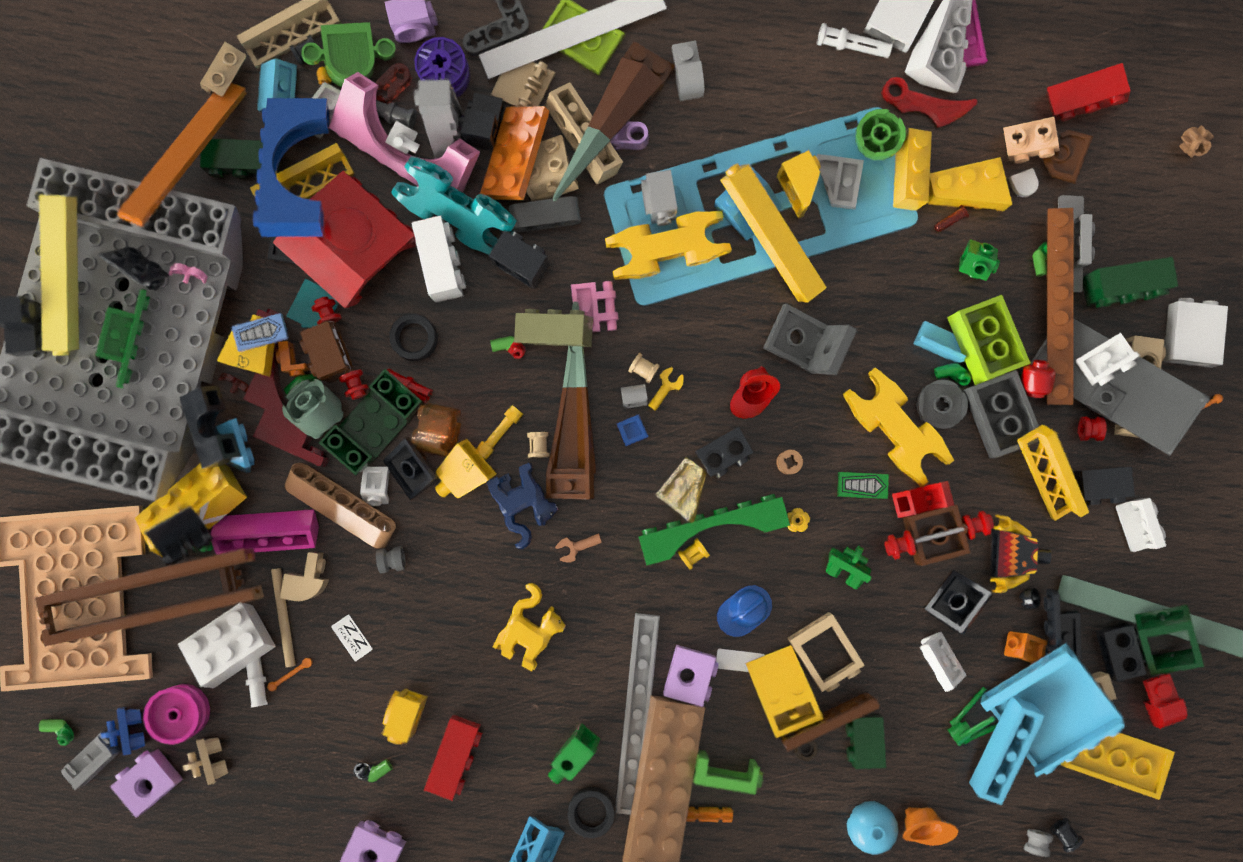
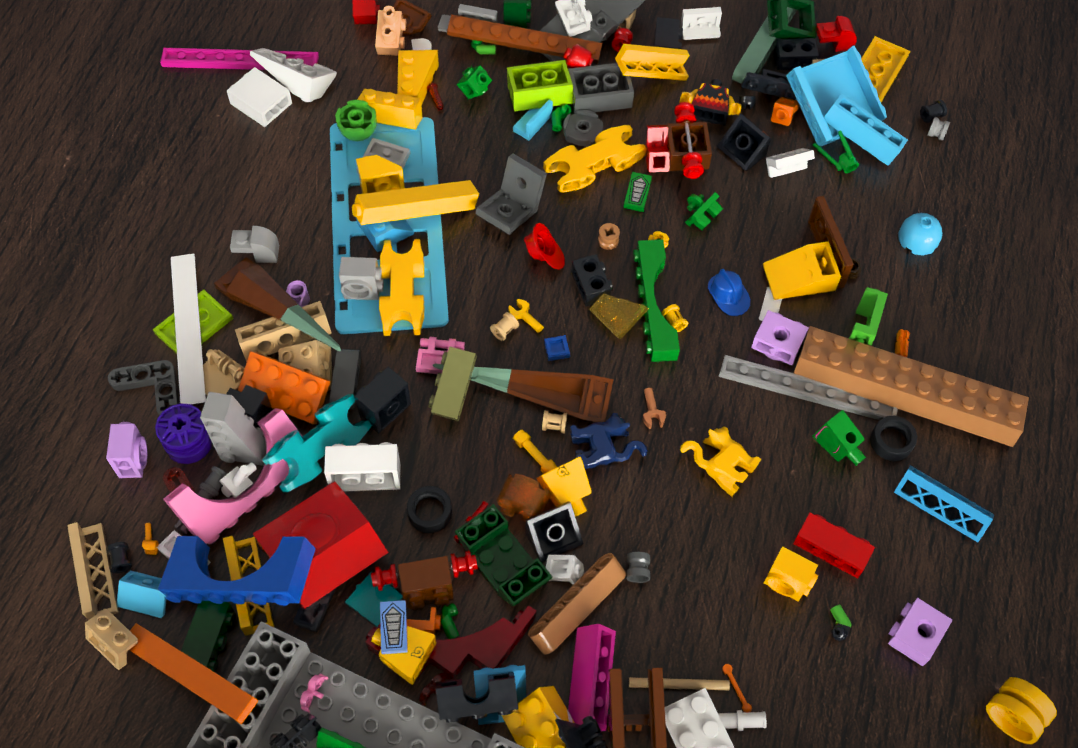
camera: 85 degrees left, 25 degrees down
(306, 586) = (651, 648): tan brick -> none
(313, 408) = (477, 605): sand green brick -> none
(347, 51) = (138, 514): bright green piece -> none
(351, 637) = (708, 623): white sticker -> none
(507, 343) = (457, 429): arm -> none
(634, 396) = (527, 338): light grey brick -> none
(814, 629) = (755, 248): tan window -> none
(866, 742) = (852, 223): dark green brick -> none
(882, 48) = (267, 137): white pin -> none
(926, 827) = (922, 195): orange piece -> none
(939, 110) = (347, 87): red piece -> none

